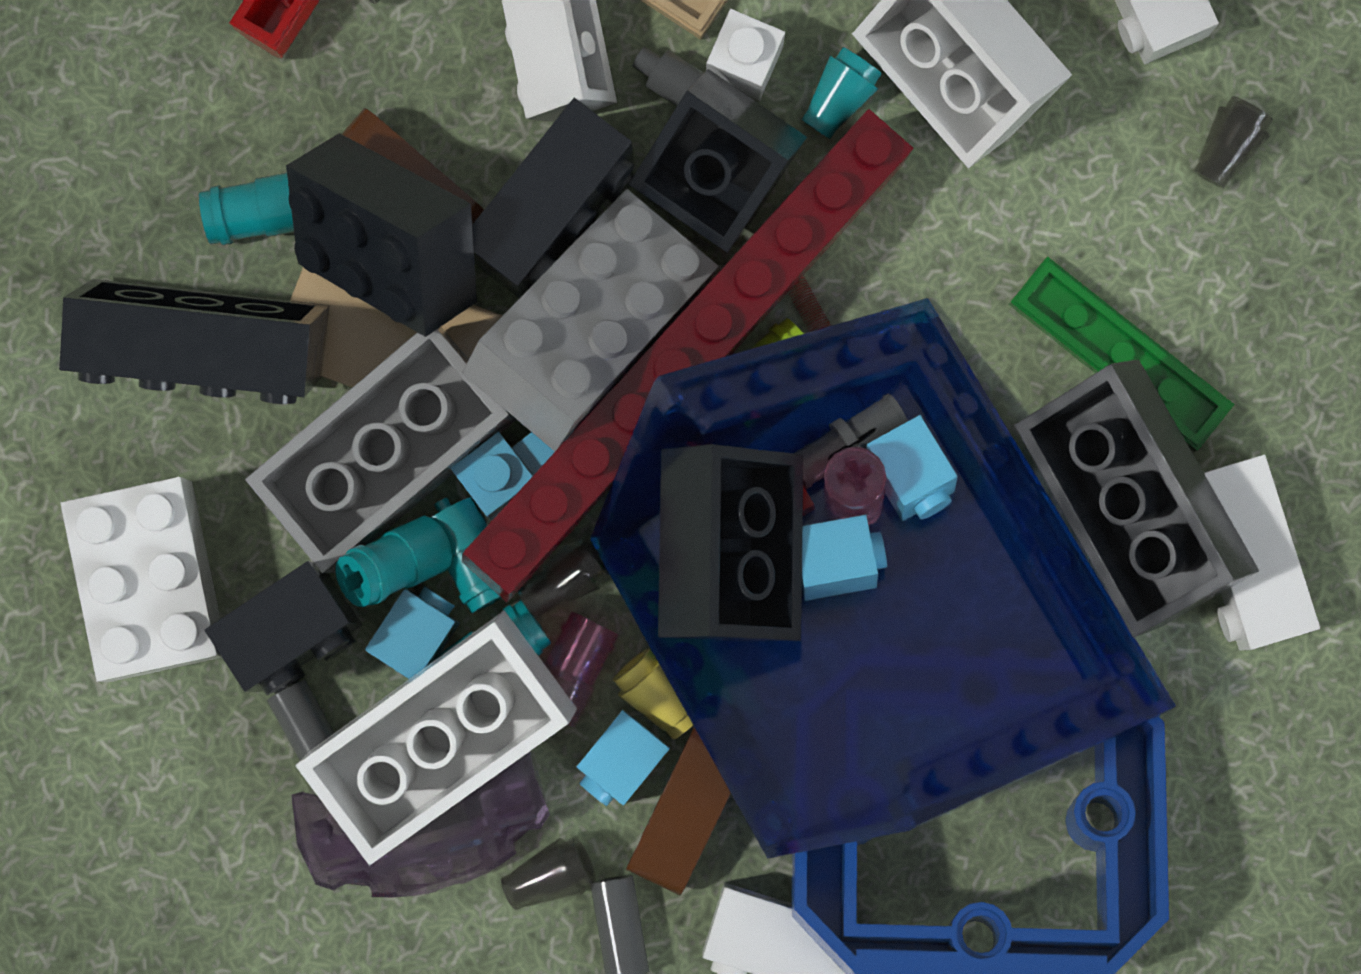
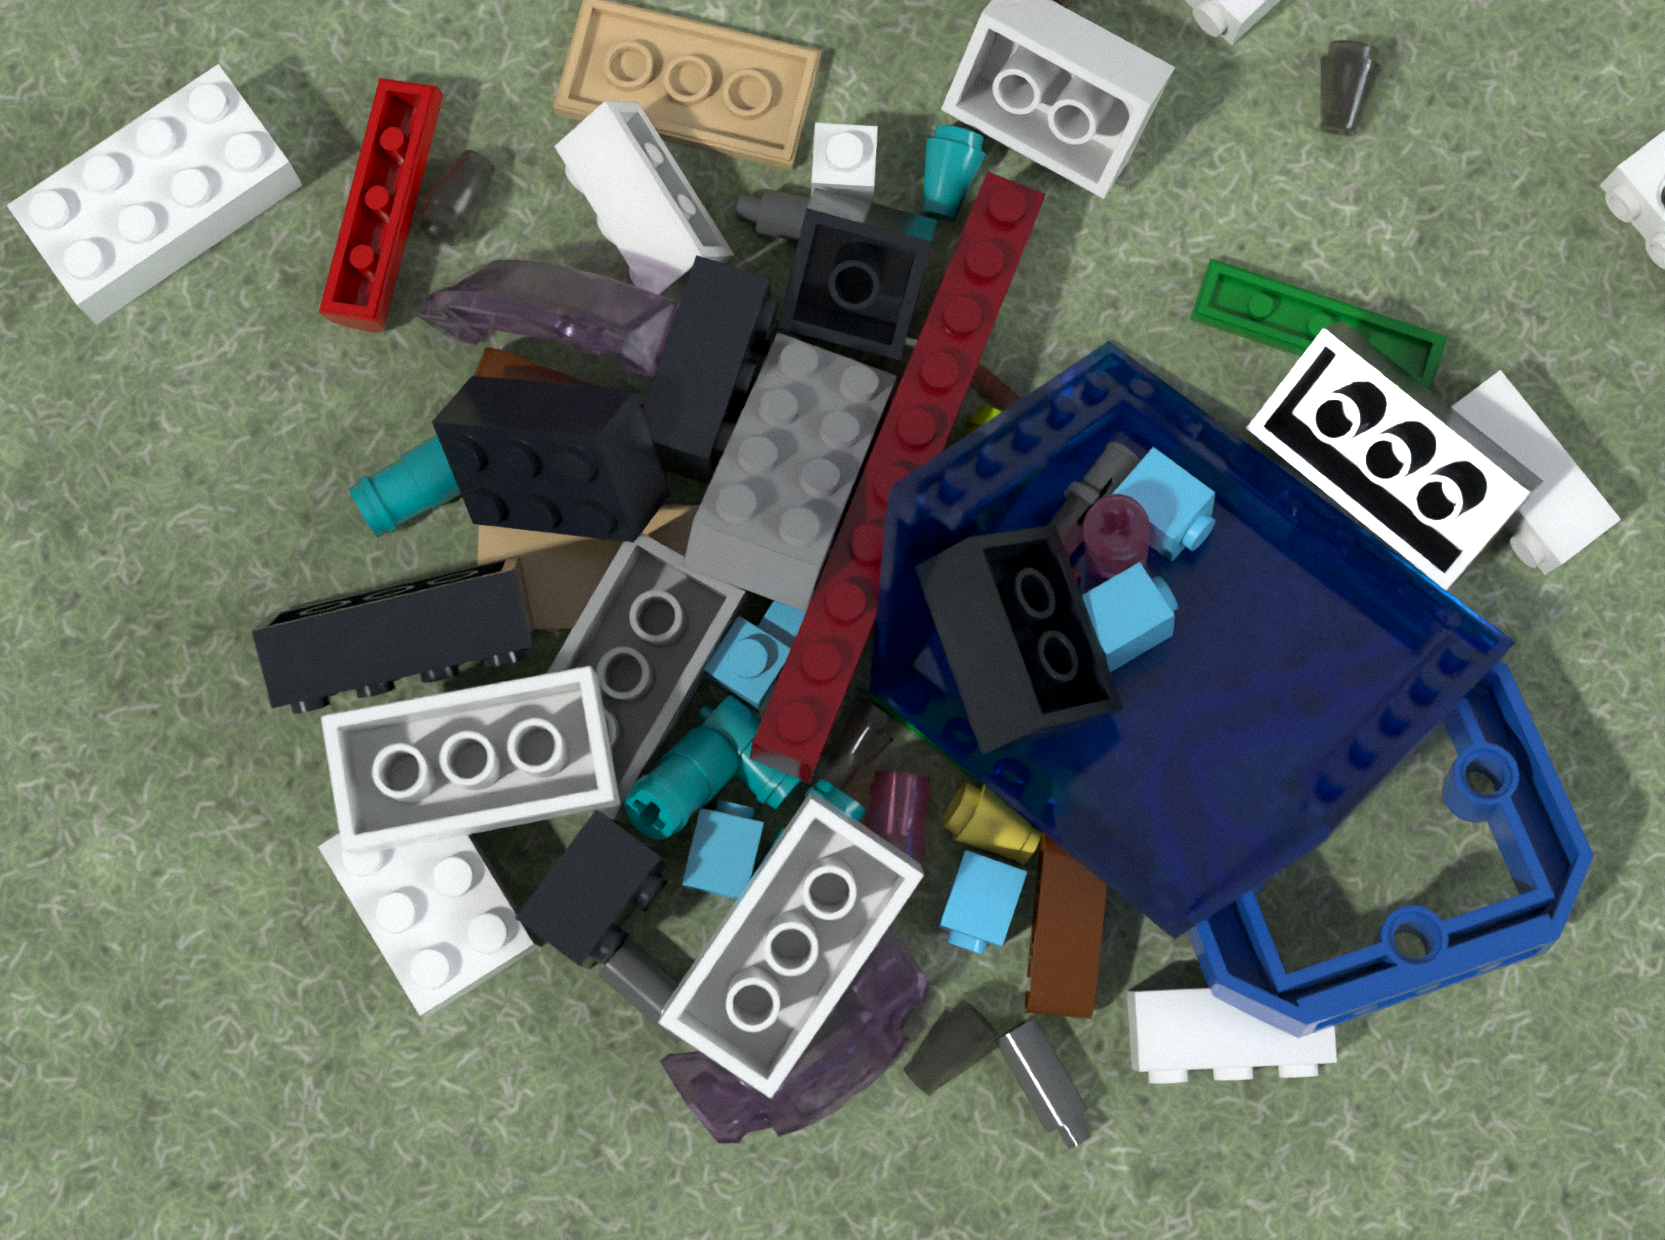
camera: 25 degrees left, 5 degrees down
(213, 480) = (470, 761): none -> white brick
(434, 100) = (554, 305): none -> clear purple windscreen

